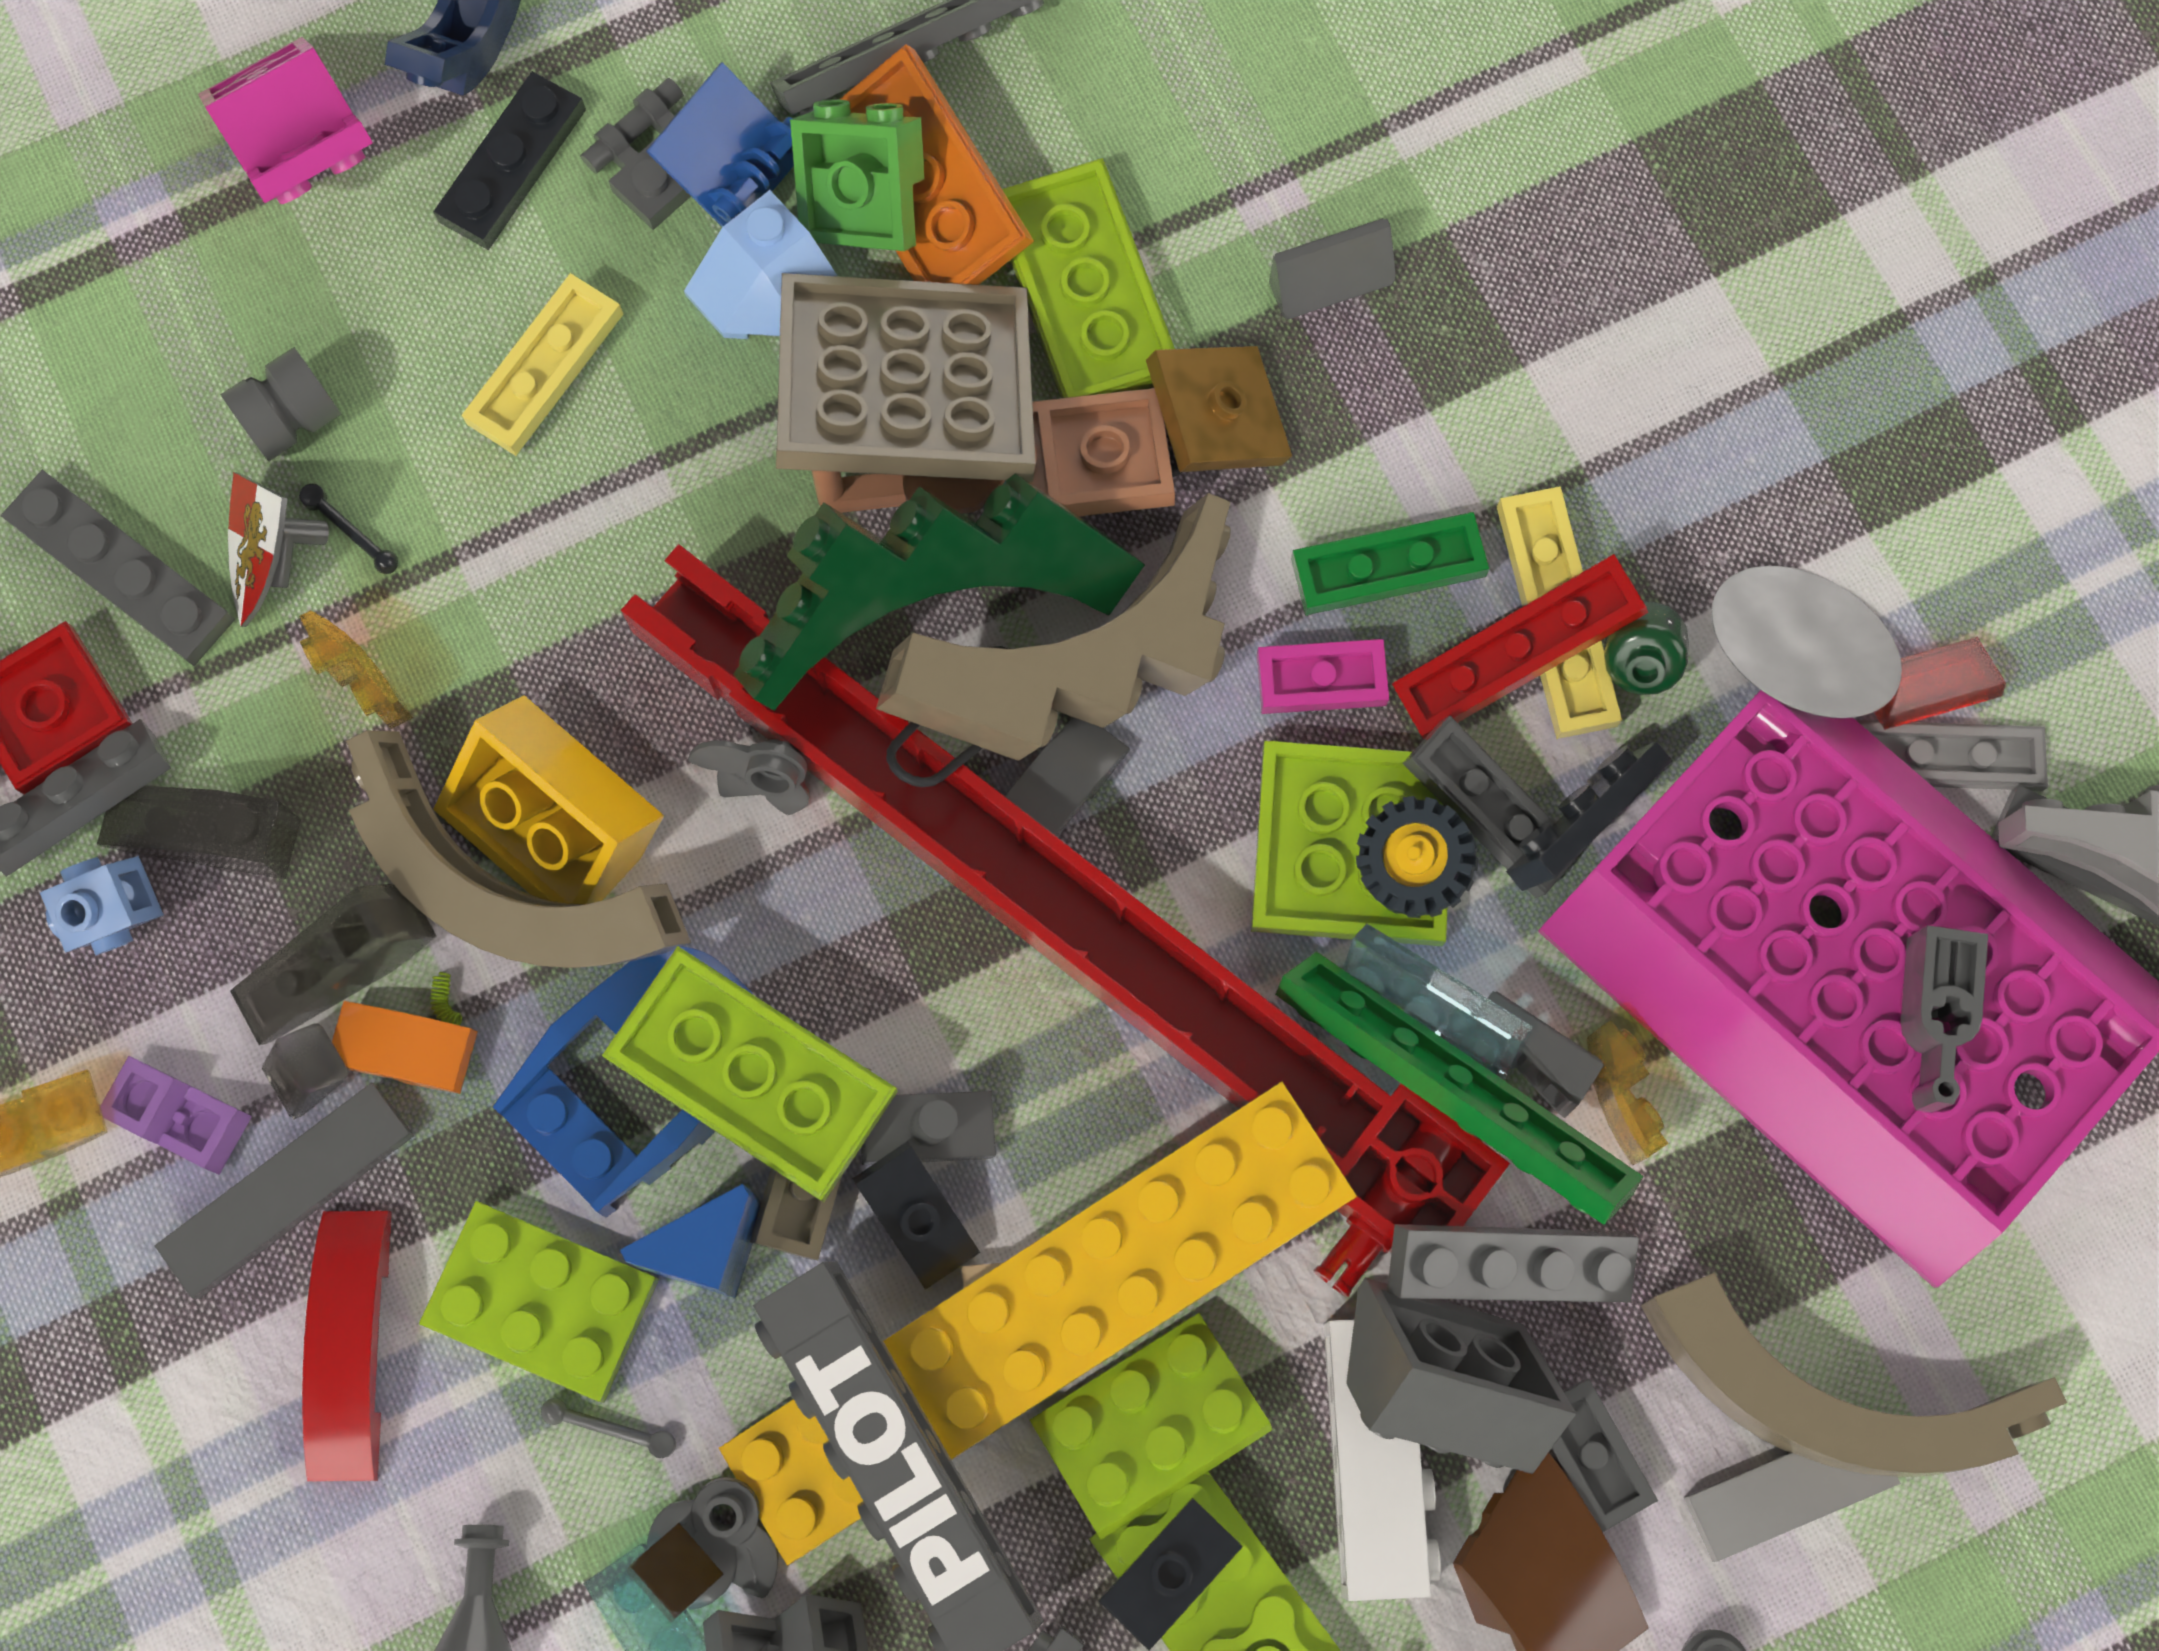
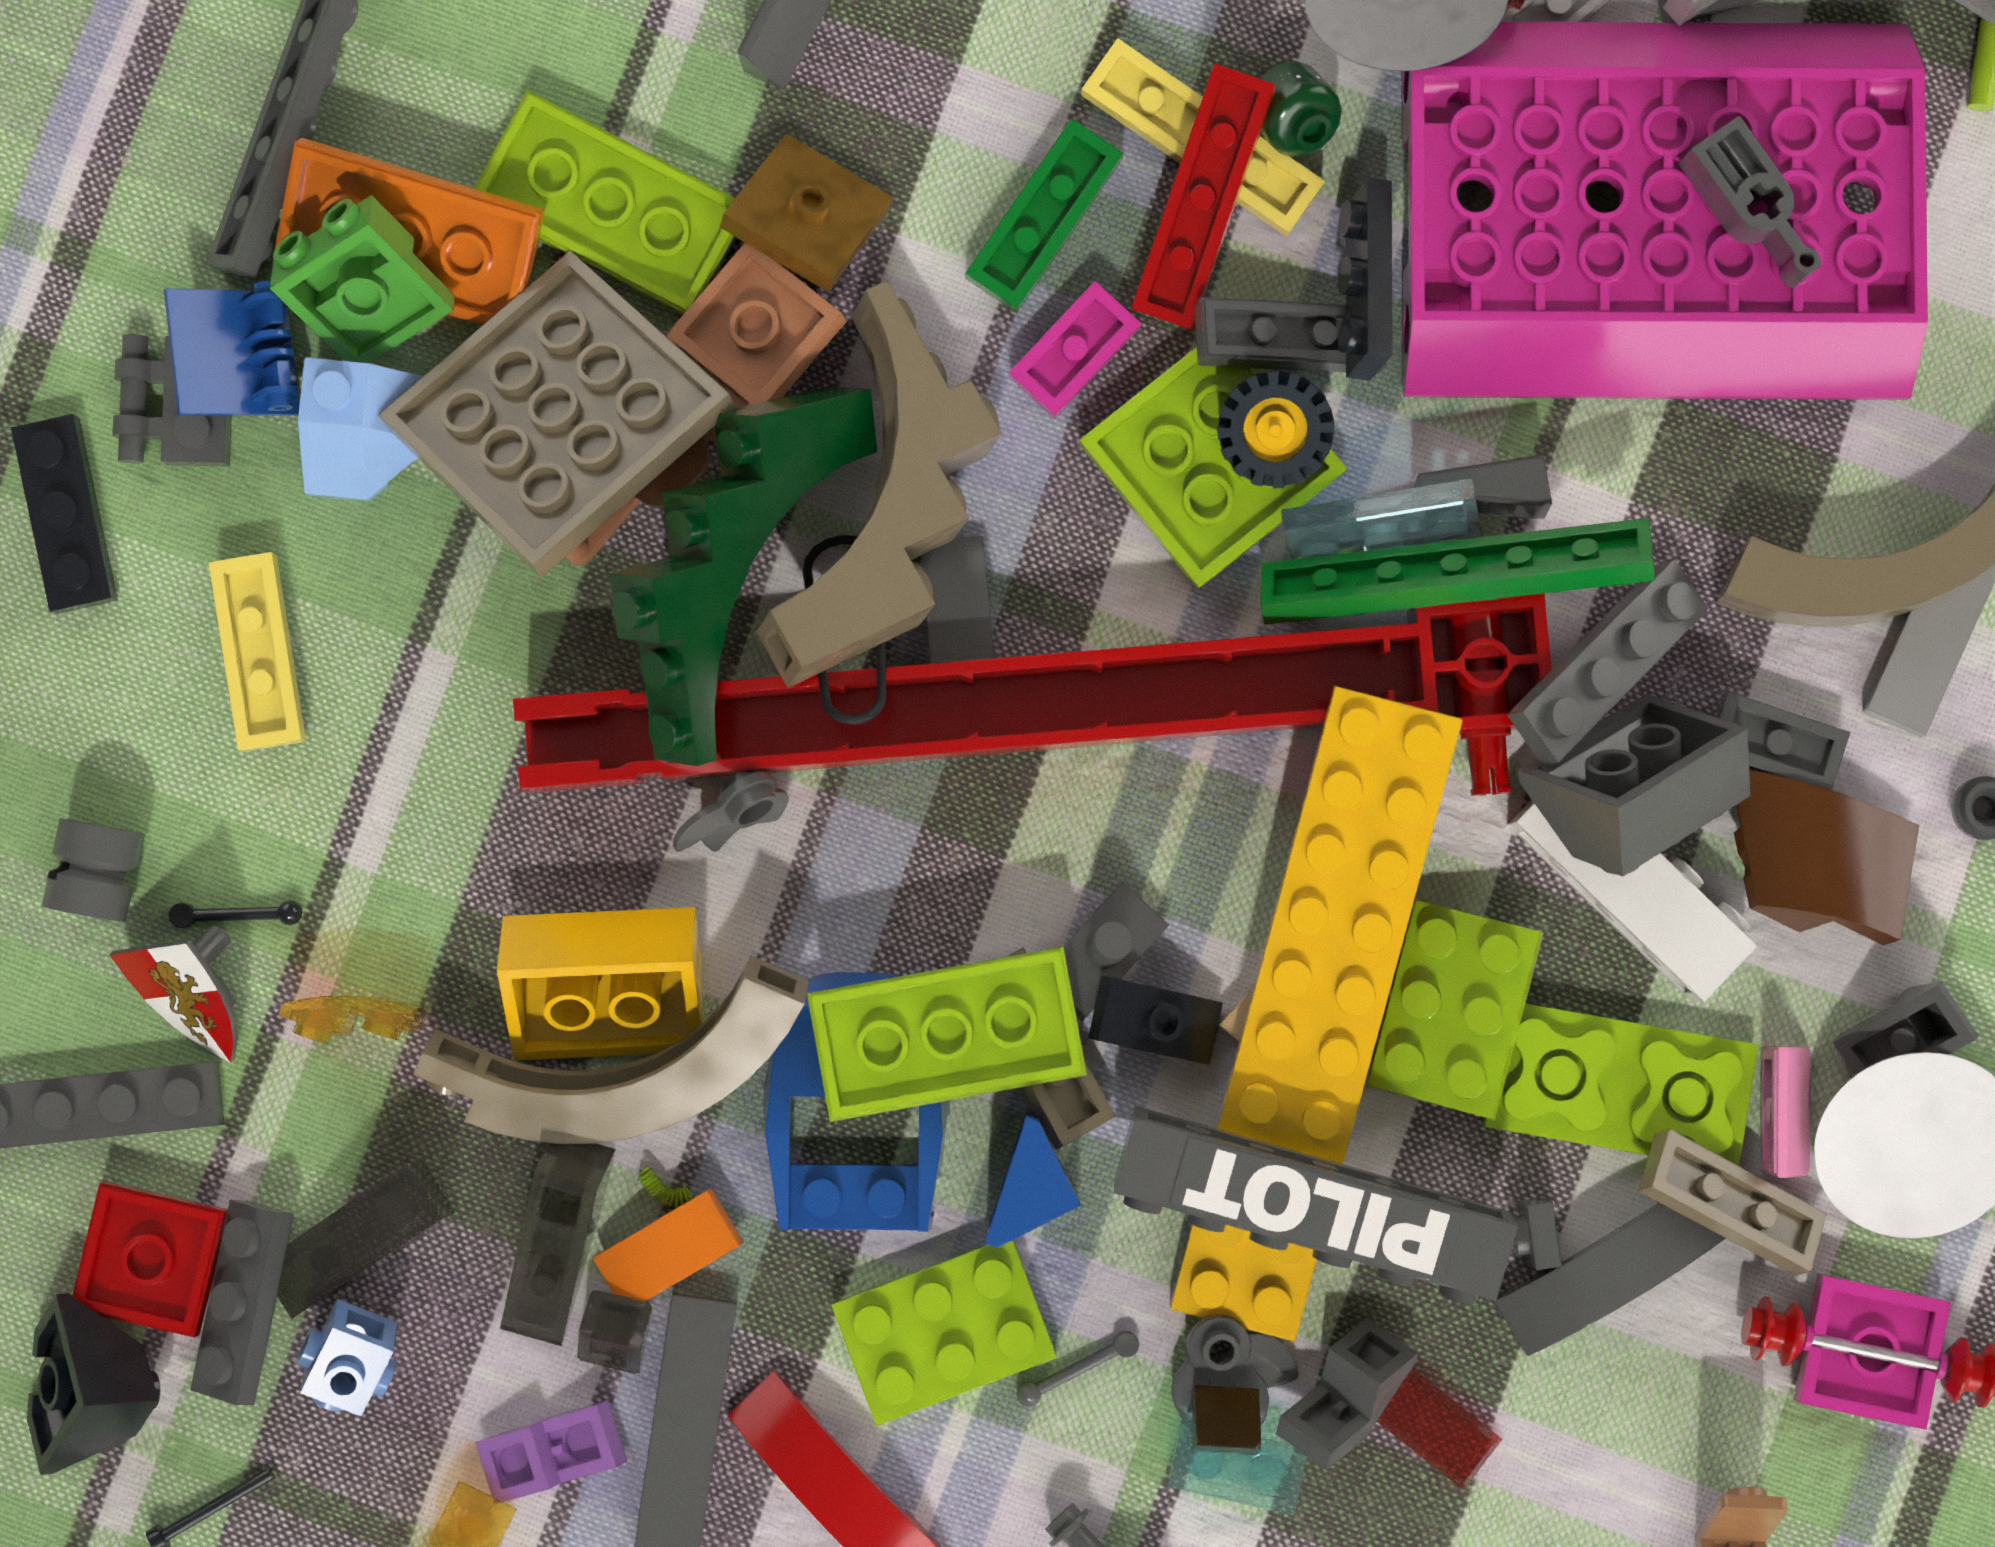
camera: 40 degrees left, 10 degrees up
(1170, 1574) = (1565, 1098): black plate -> none
(1630, 1119) = (1595, 477): clear yellow slope -> none

